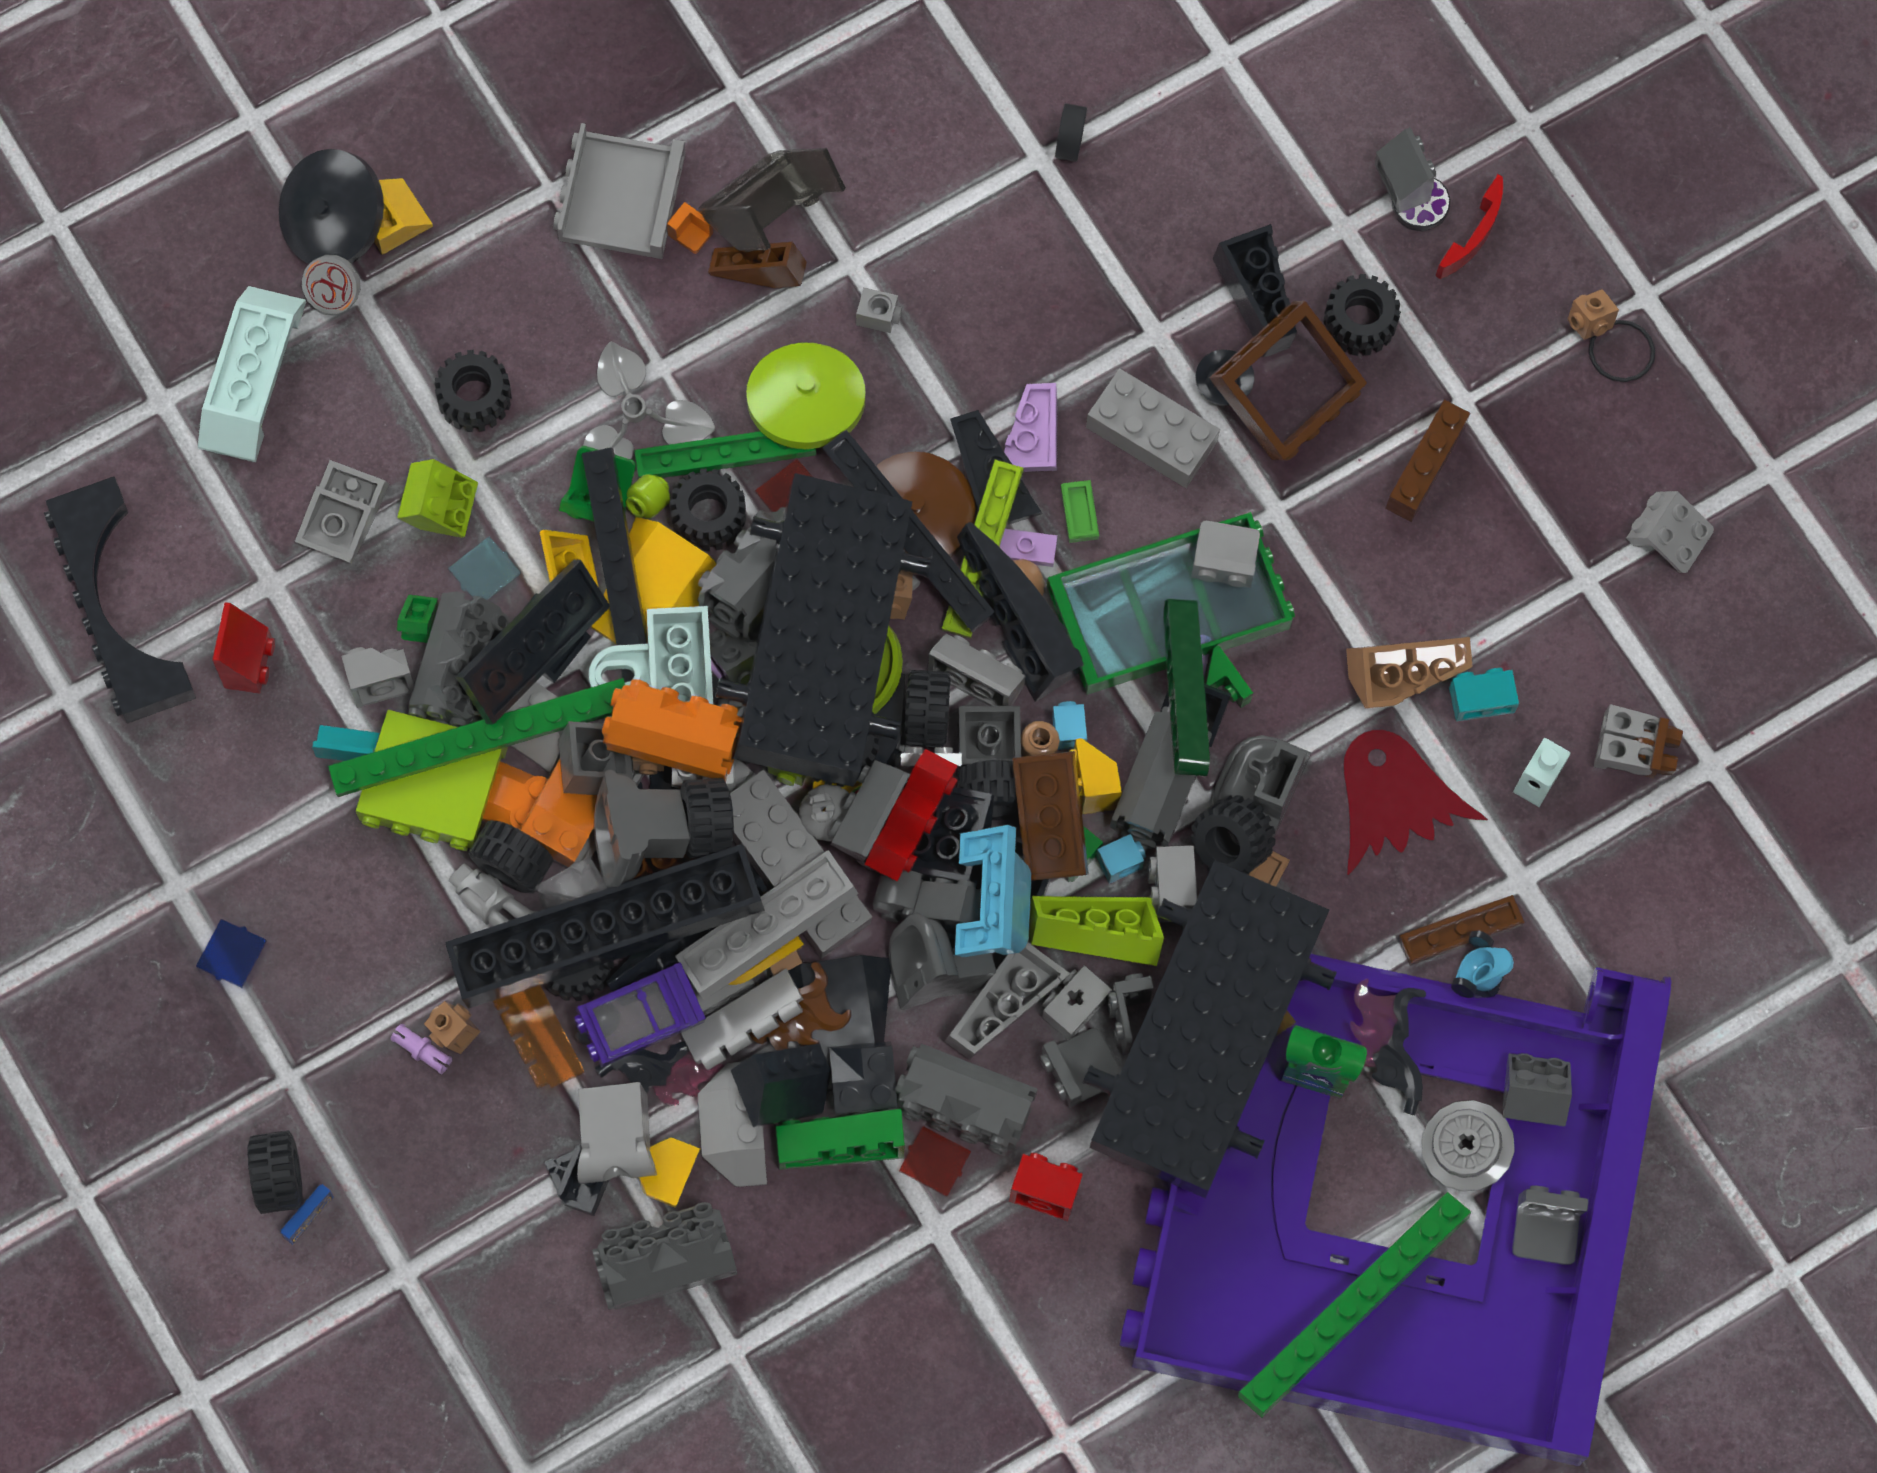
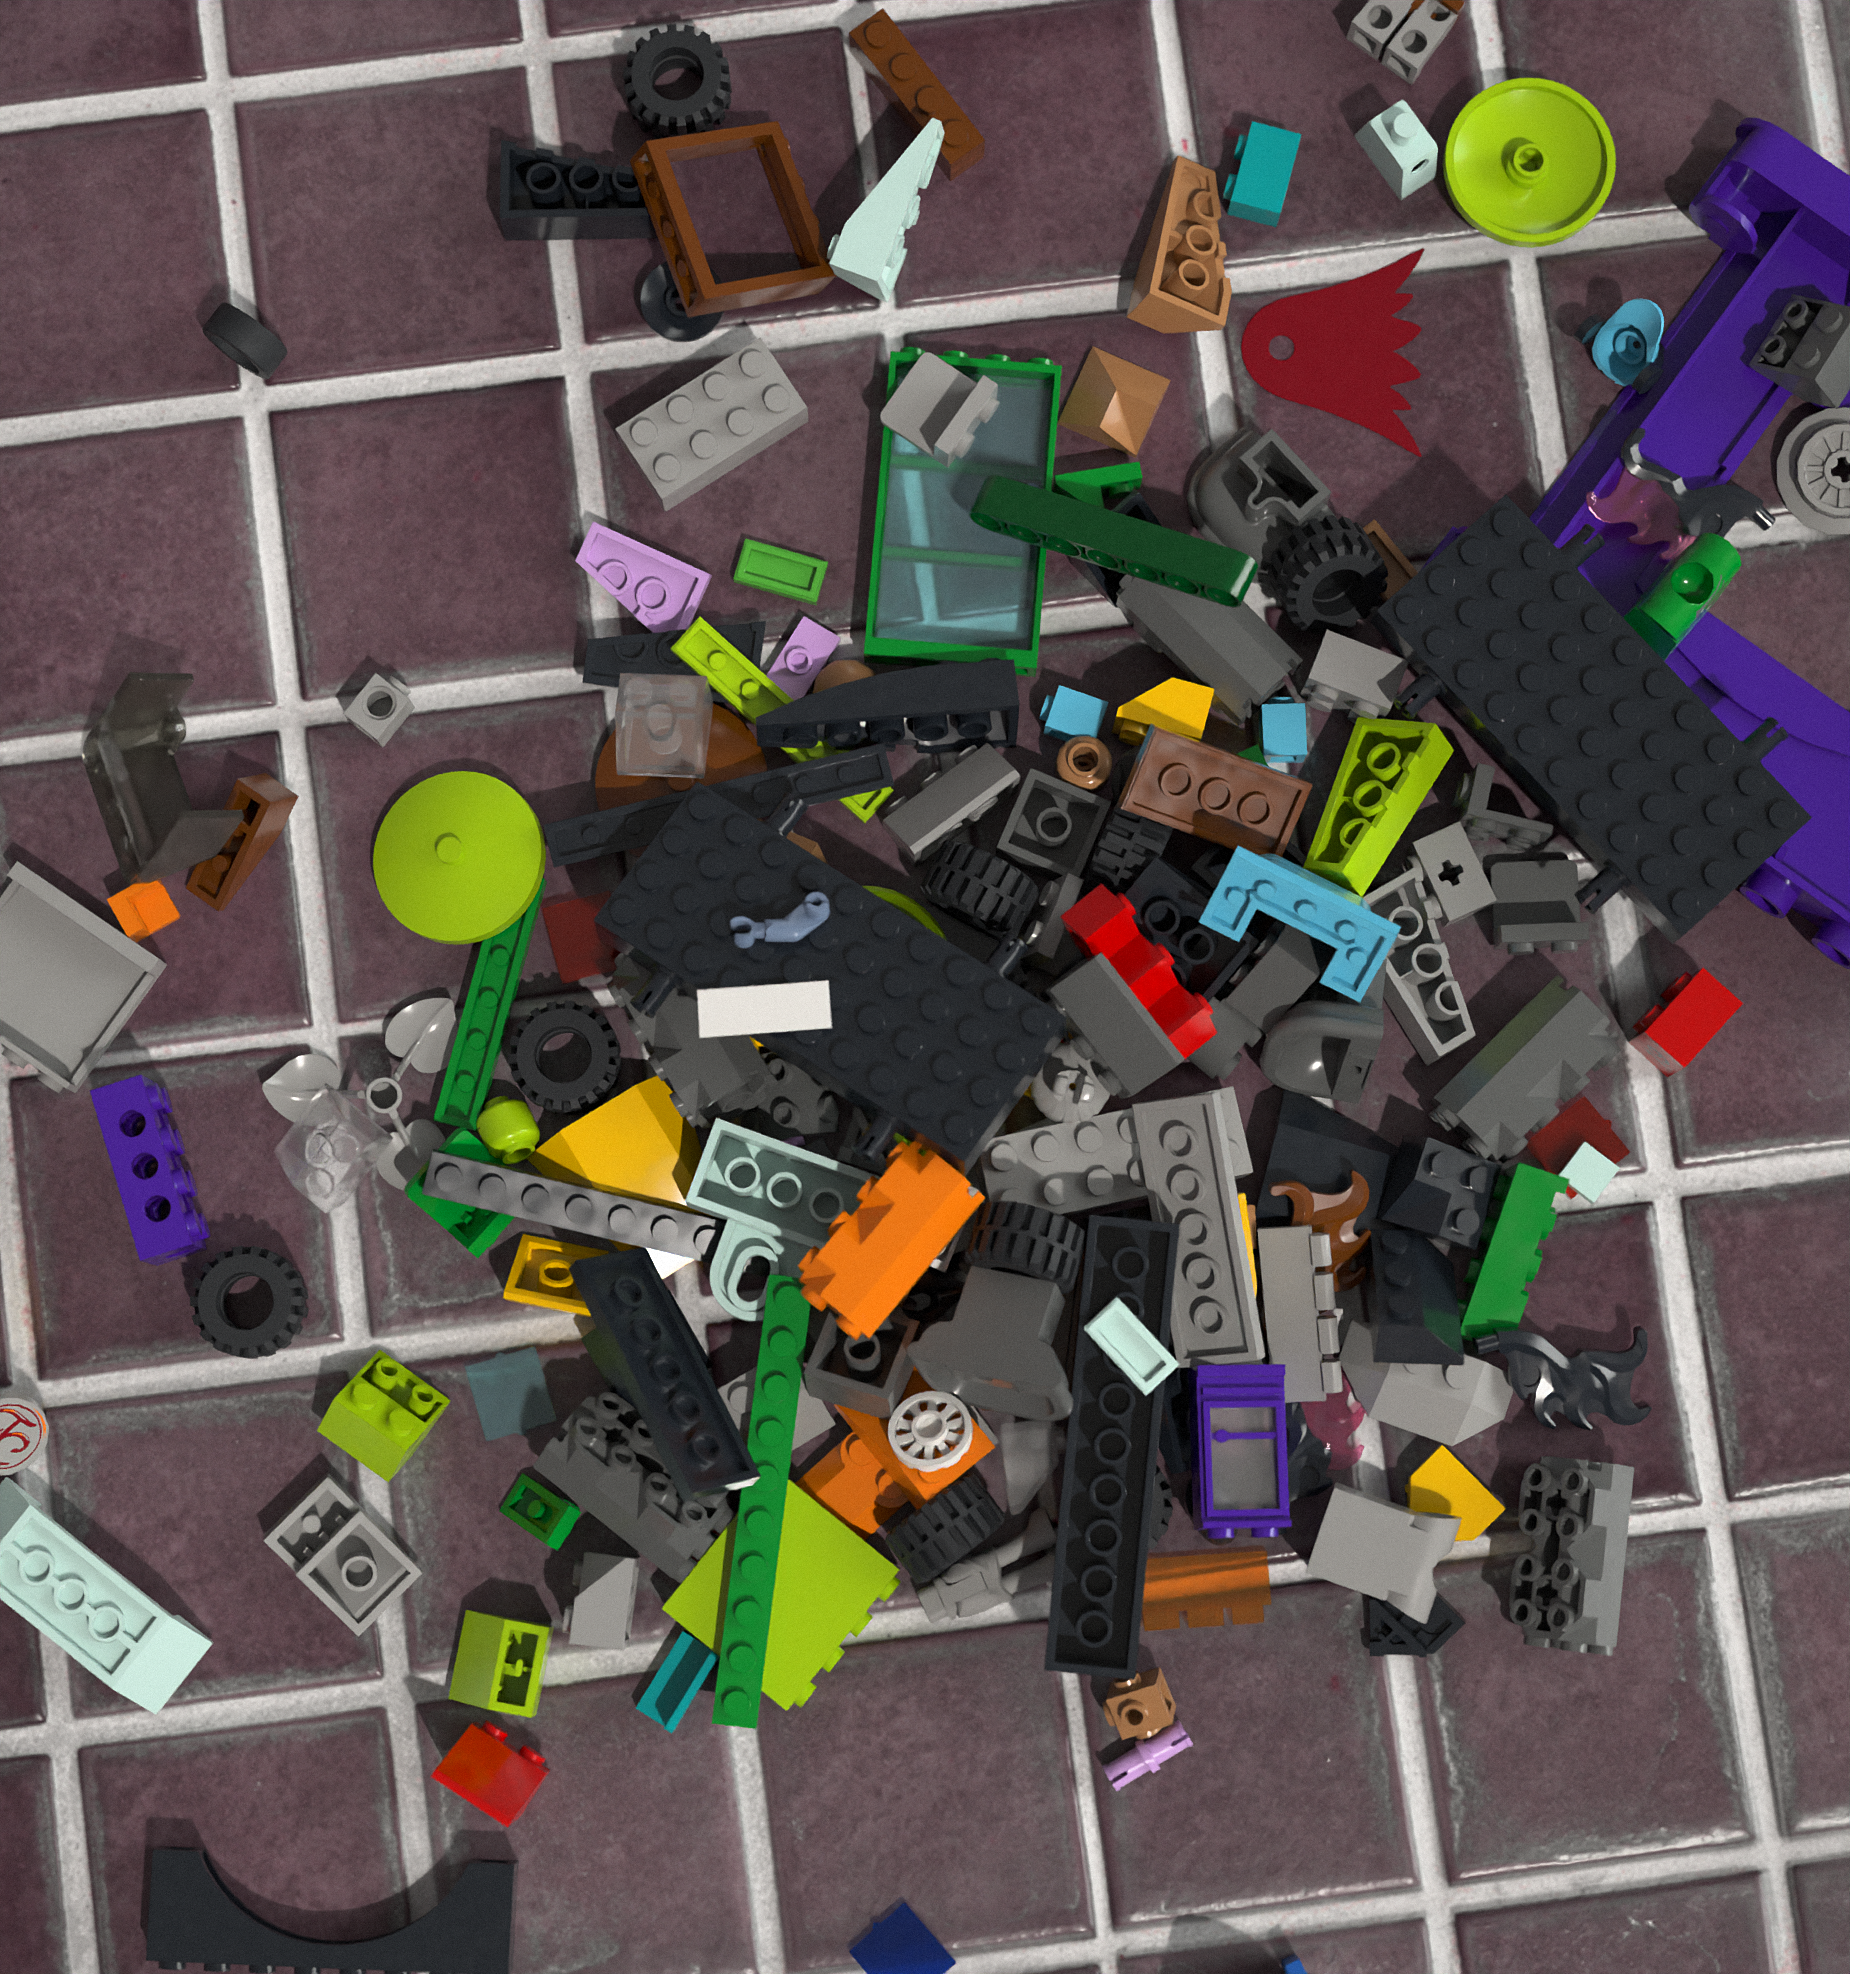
camera: 65 degrees left, 10 degrees up
(313, 634) = (501, 1663): none -> lime slope
(540, 283) = (119, 1112): none -> dark purple brick
(566, 814) = (930, 1431): none -> white wheel
(588, 399) = (330, 1149): none -> clear slope
(670, 903) = (1131, 1346): none -> light aqua tile
(776, 1215) = (1573, 1383): none -> black piece
(782, 590) = (764, 1009): none -> white sticker
(845, 589) = (789, 929): none -> sand blue arm
(920, 1171) = (1588, 1172): none -> light aqua tile
(943, 475) = (662, 725): none -> clear slope
(1289, 668) = (1114, 402): none -> medium nougat slope
(1323, 470) = (872, 239): none -> light aqua wedge
(1455, 930) = (1556, 349): reddish brown tile -> none
(1574, 856) = (1529, 162): none -> lime dish

